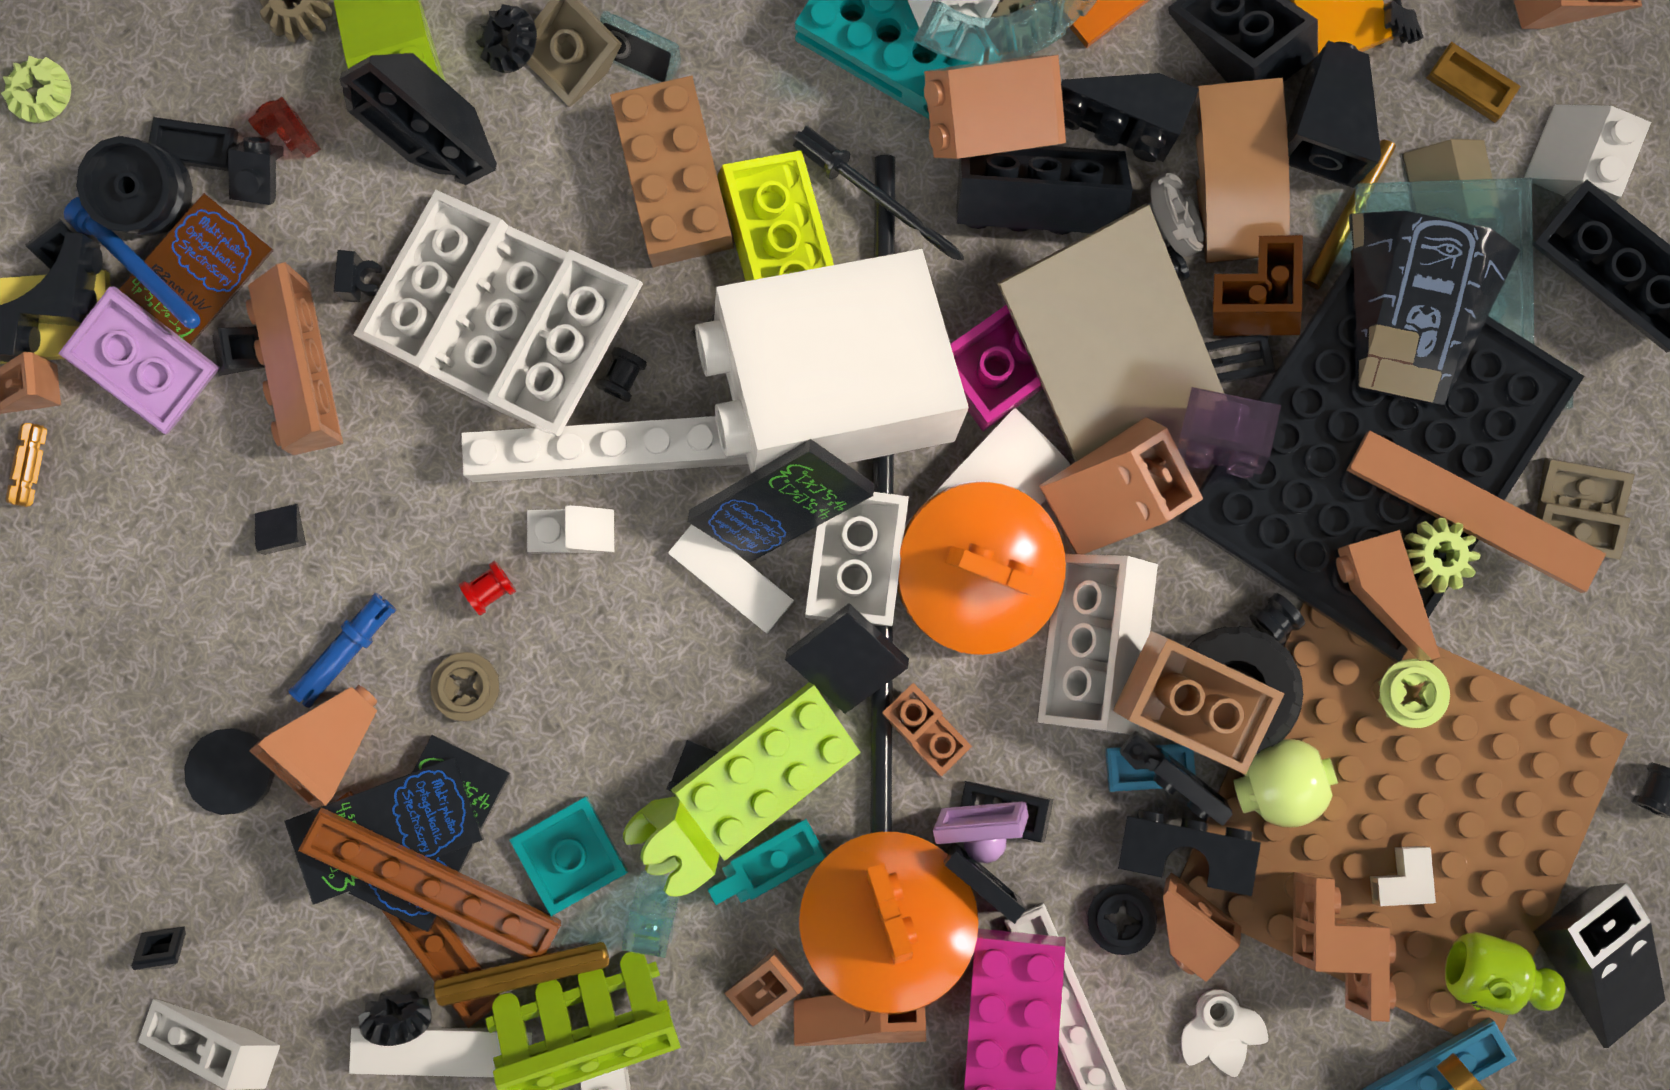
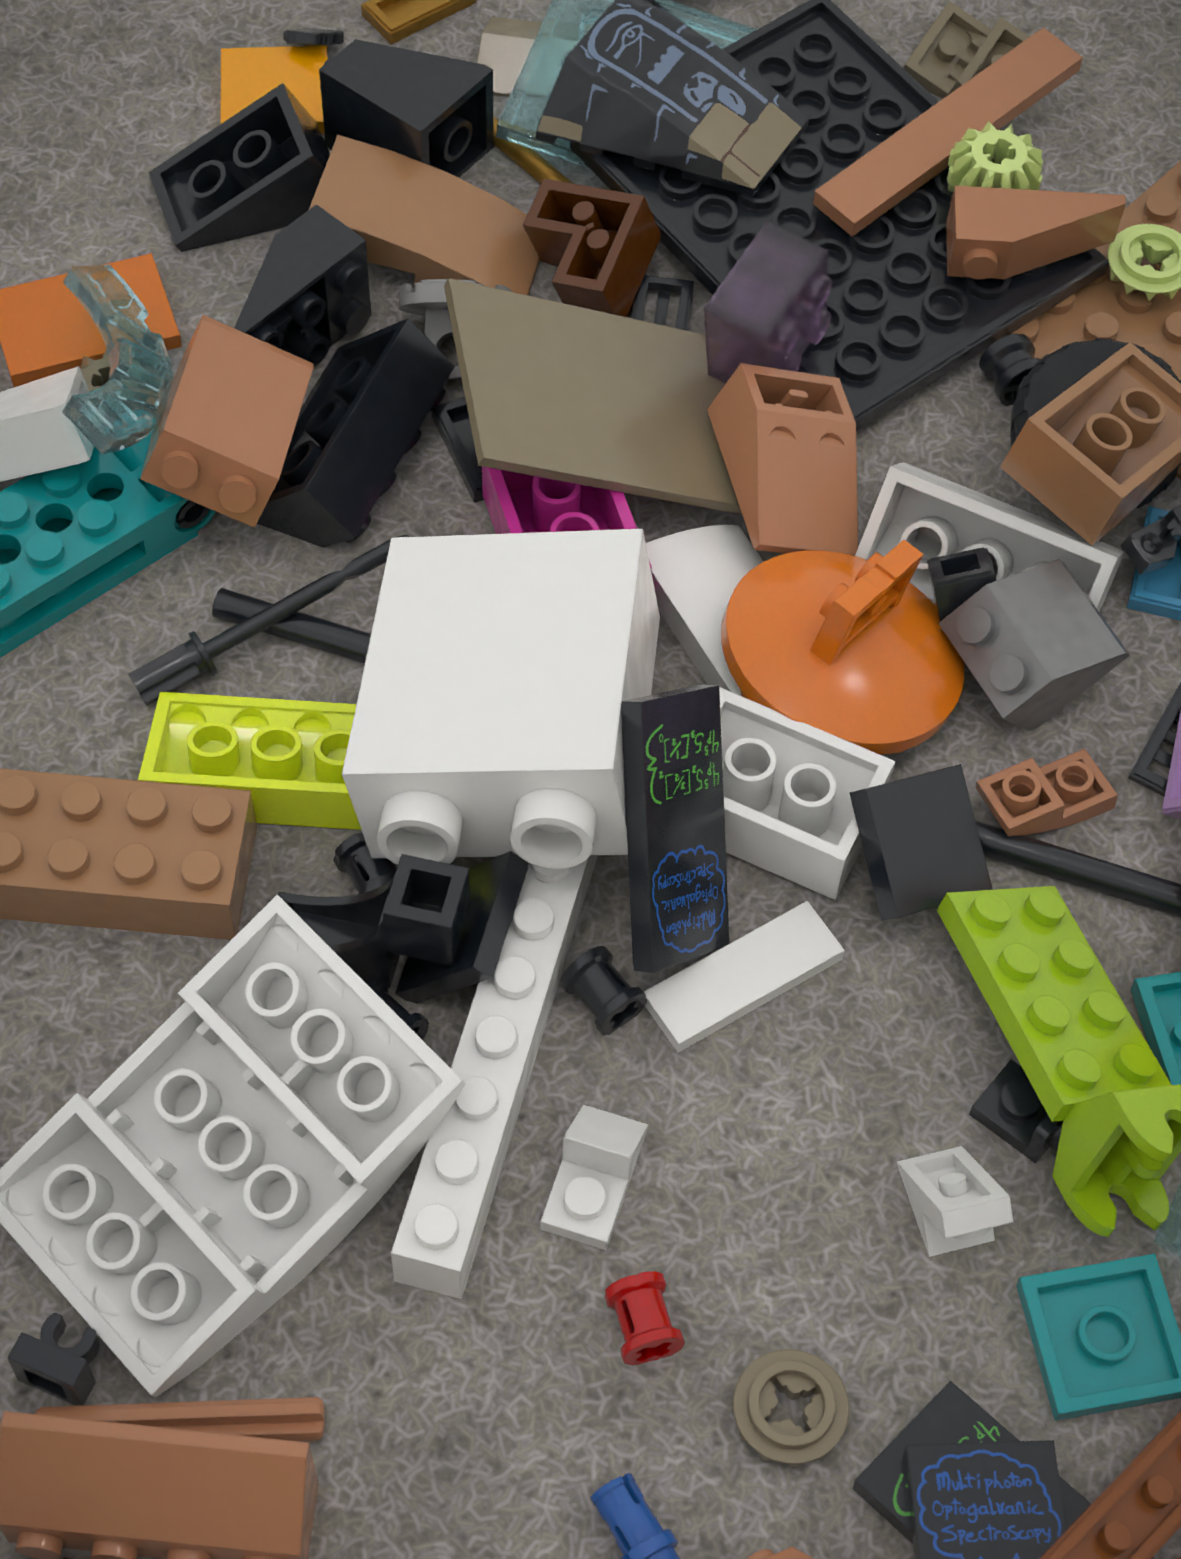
camera: 70 degrees left, 25 degrees down
(347, 356) = (264, 1418): none -> nougat axle
(618, 744) = (954, 1200): none -> white slope
(665, 341) = (411, 916): none -> black arch
(683, 398) = (493, 899): none -> black tile
(686, 494) = (603, 989): none -> black bush
(1029, 691) = (1033, 642): none -> flat silver slope
(1060, 629) = (959, 577): none -> black slope

